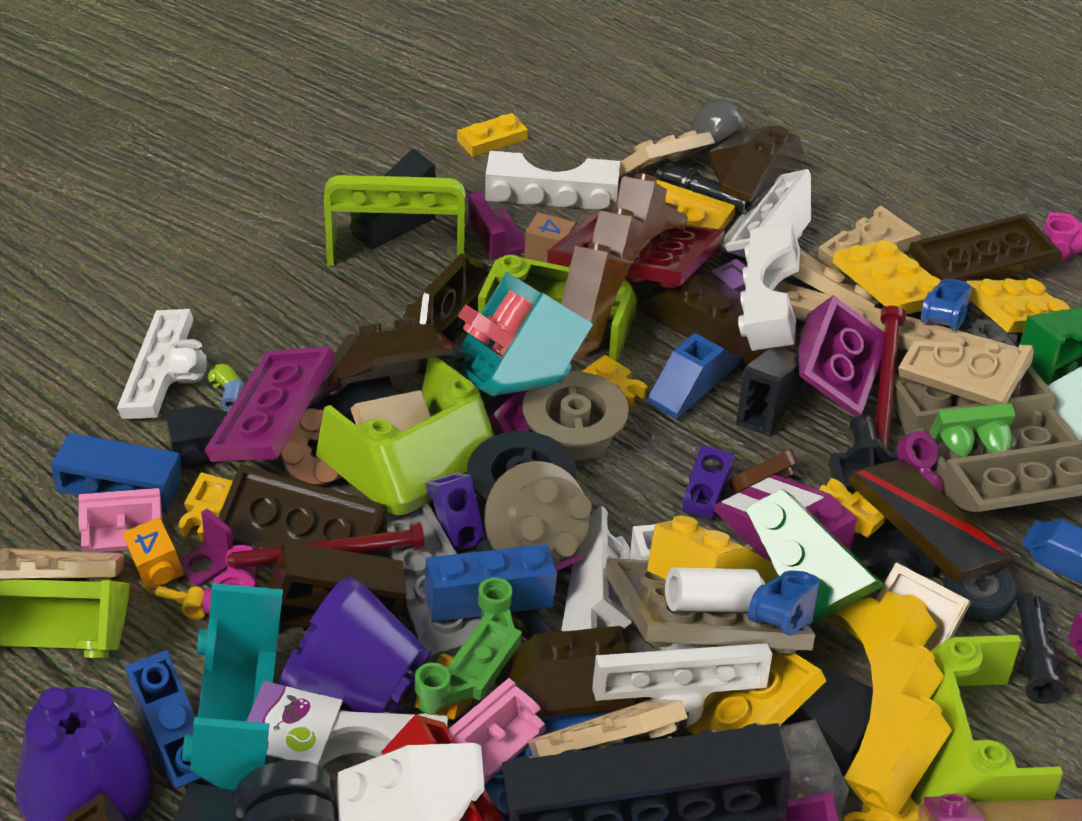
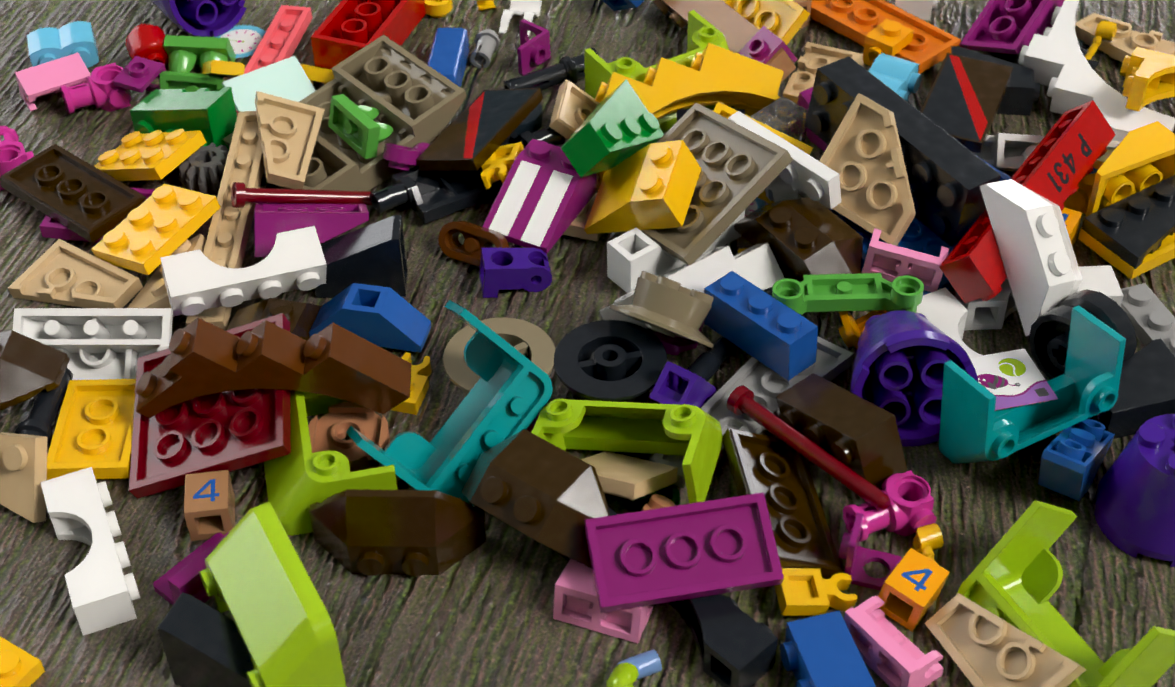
camera: 115 degrees left, 0 degrees up
(503, 323) = (454, 422): coral plate -> none
(711, 589) = (712, 145): white brick -> none
(786, 601) = (684, 114): blue piece -> none
(947, 303) = (198, 170): blue piece -> none

